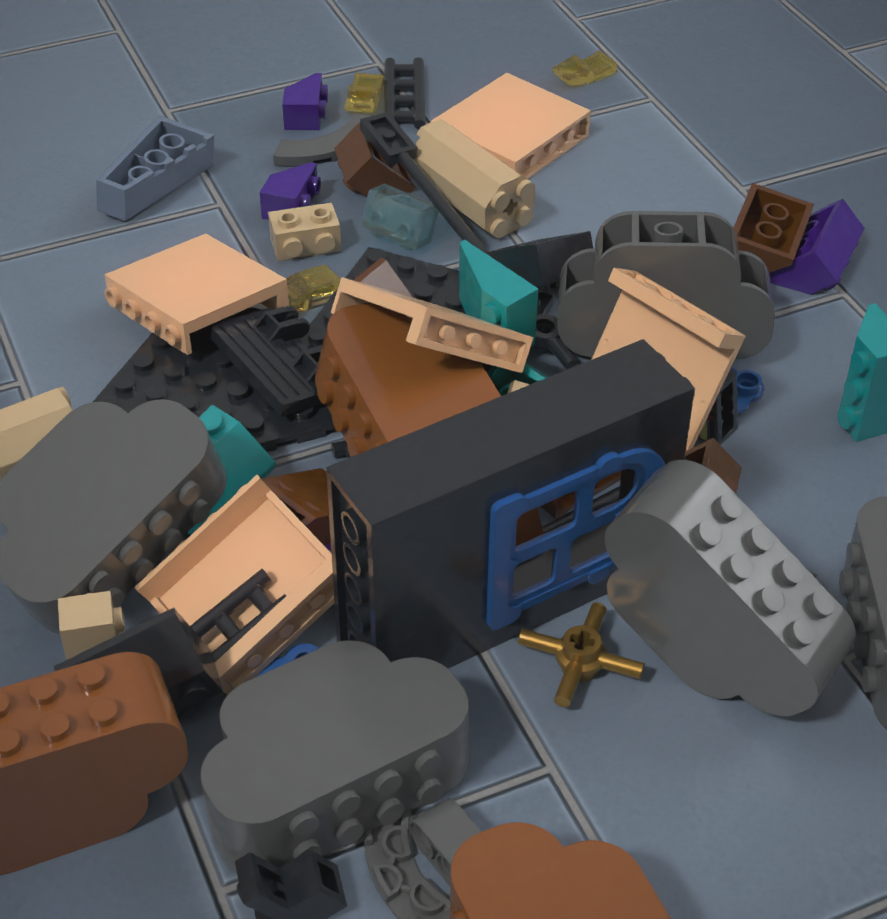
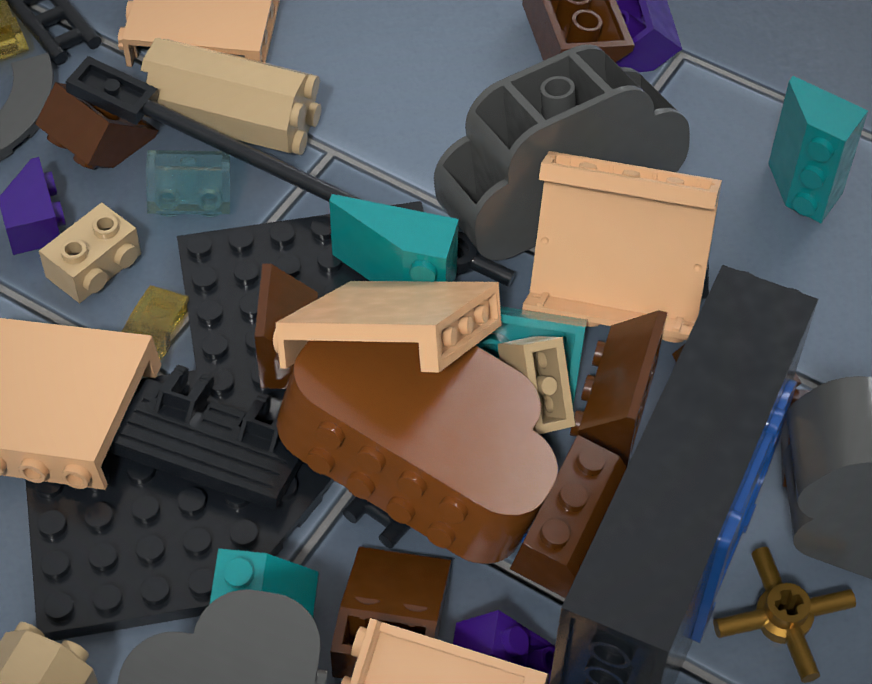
camera: 35 degrees left, 10 degrees up
(542, 259) = (392, 163): black slope -> none

